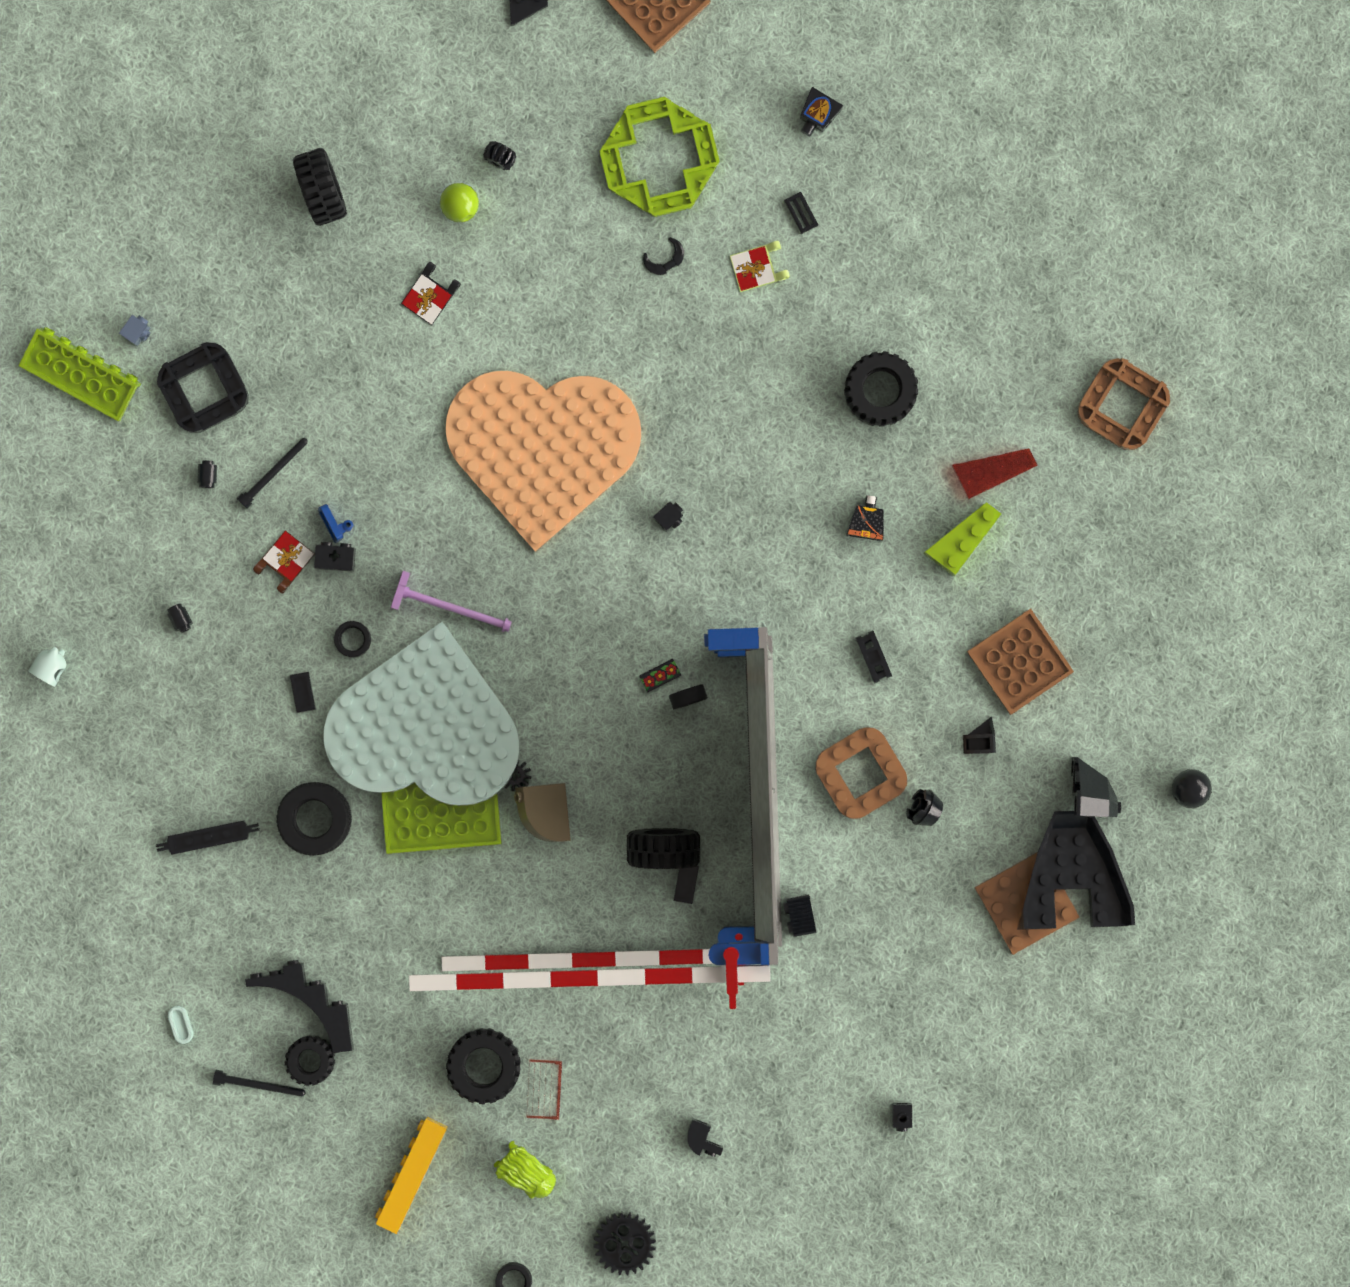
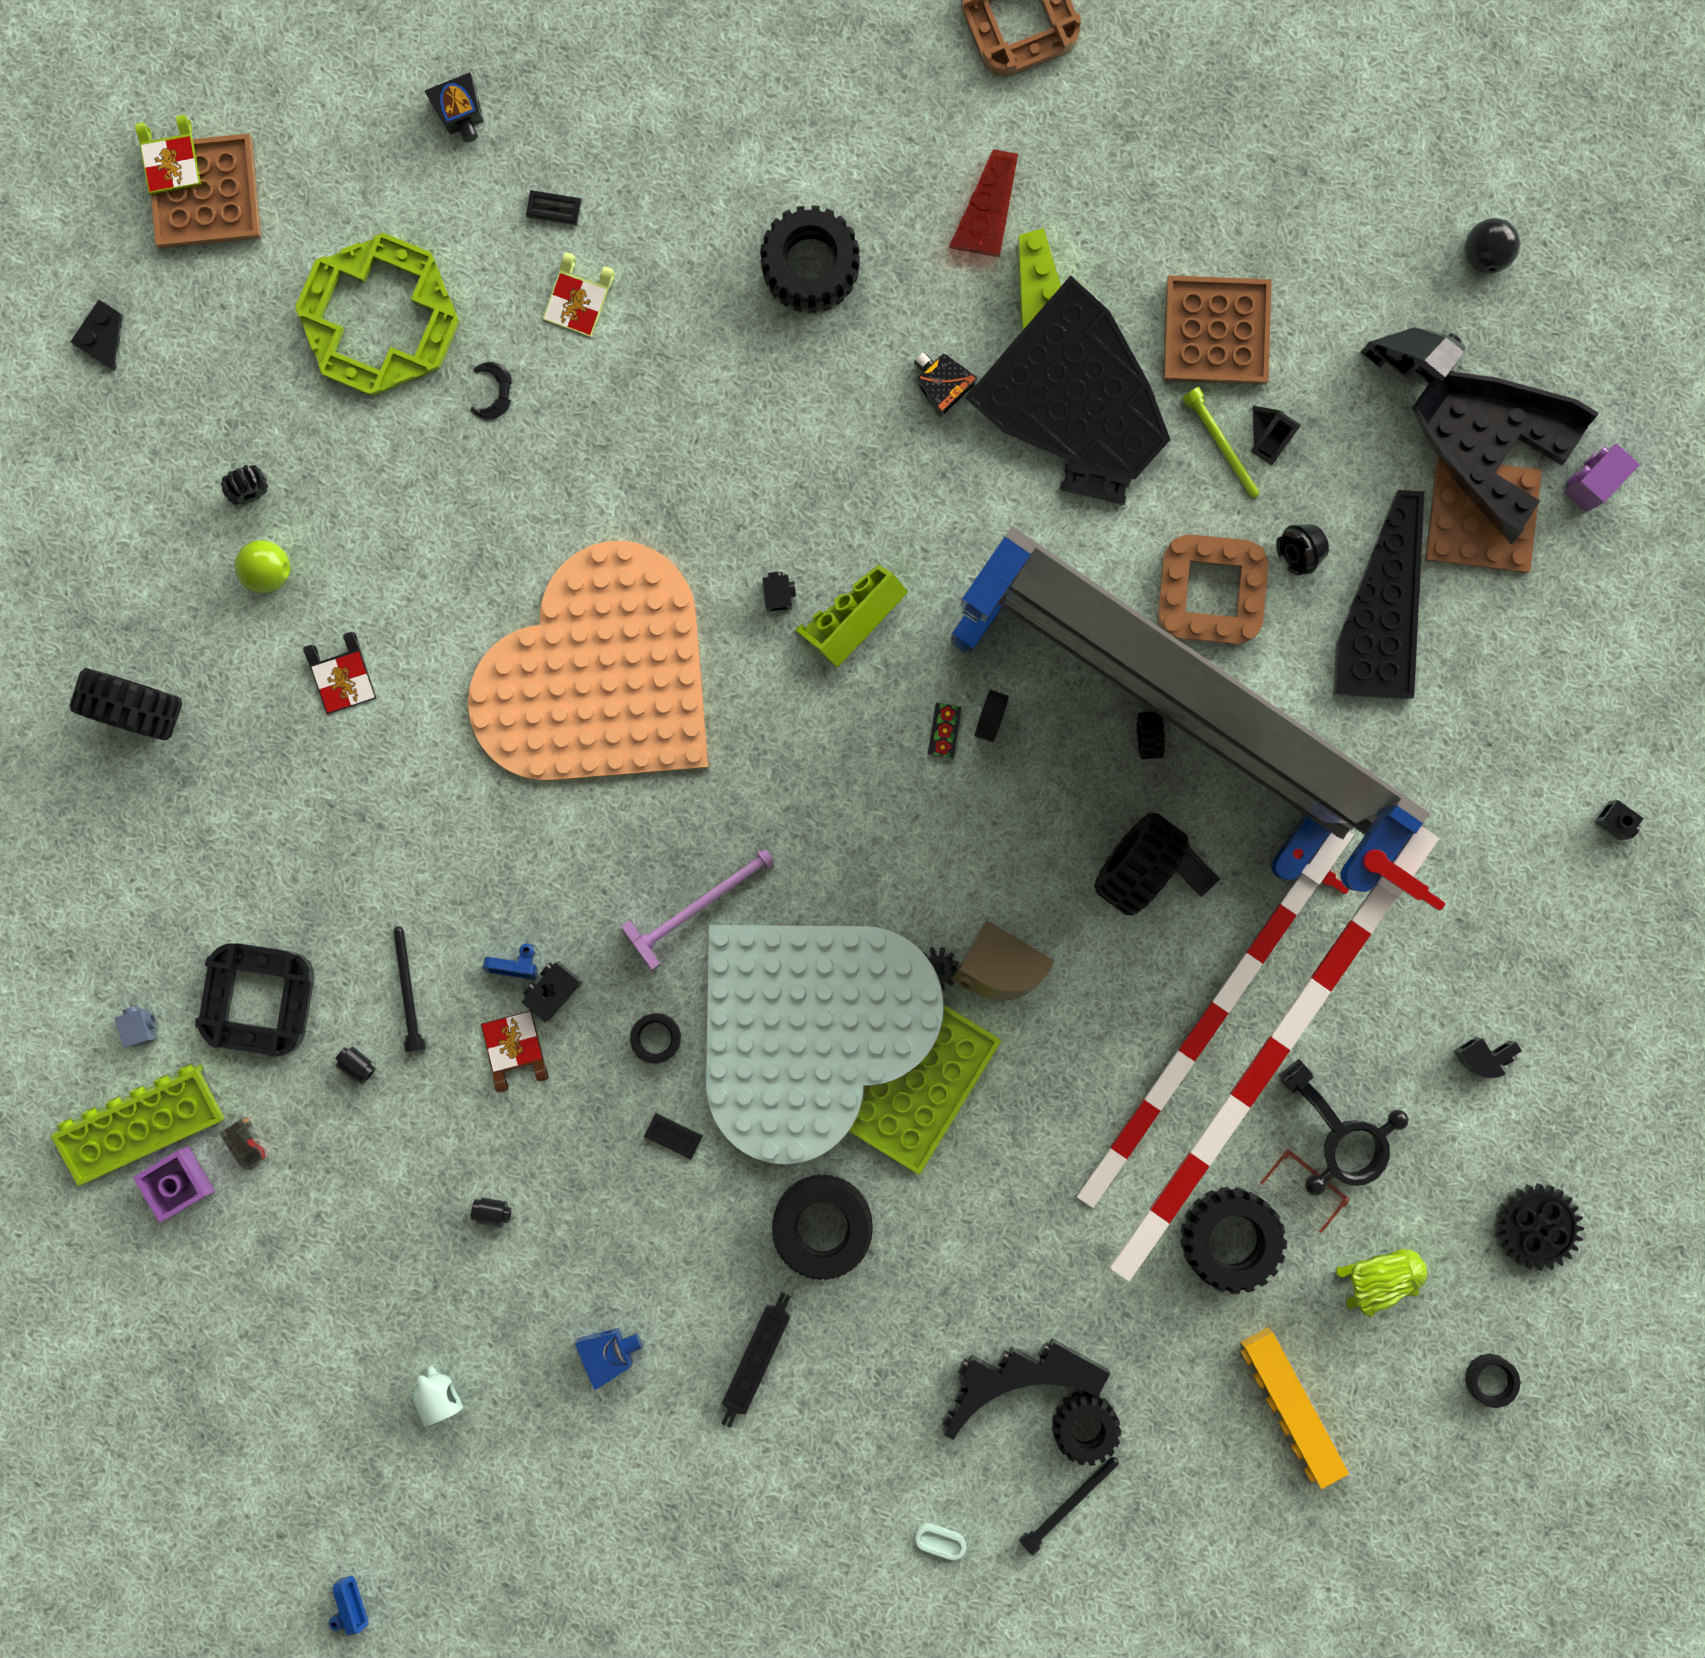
camera: 55 degrees left, 0 degrees up
(61, 421) = (174, 1184): none -> medium lavender brick
(111, 444) = (242, 1145): none -> clear smoke leg
(146, 747) = (606, 1354): none -> blue torso
(607, 1035) = (1297, 1078): none -> black piece
(687, 571) = (853, 615): none -> lime wedge
(741, 802) = (1150, 735): none -> black tyre
(912, 890) = (1381, 628): none -> black wing
(918, 603) = (1075, 388): none -> black piece
(967, 679) = (1195, 401): none -> lime piece
(1098, 955) = (1600, 477): none -> medium lavender brick

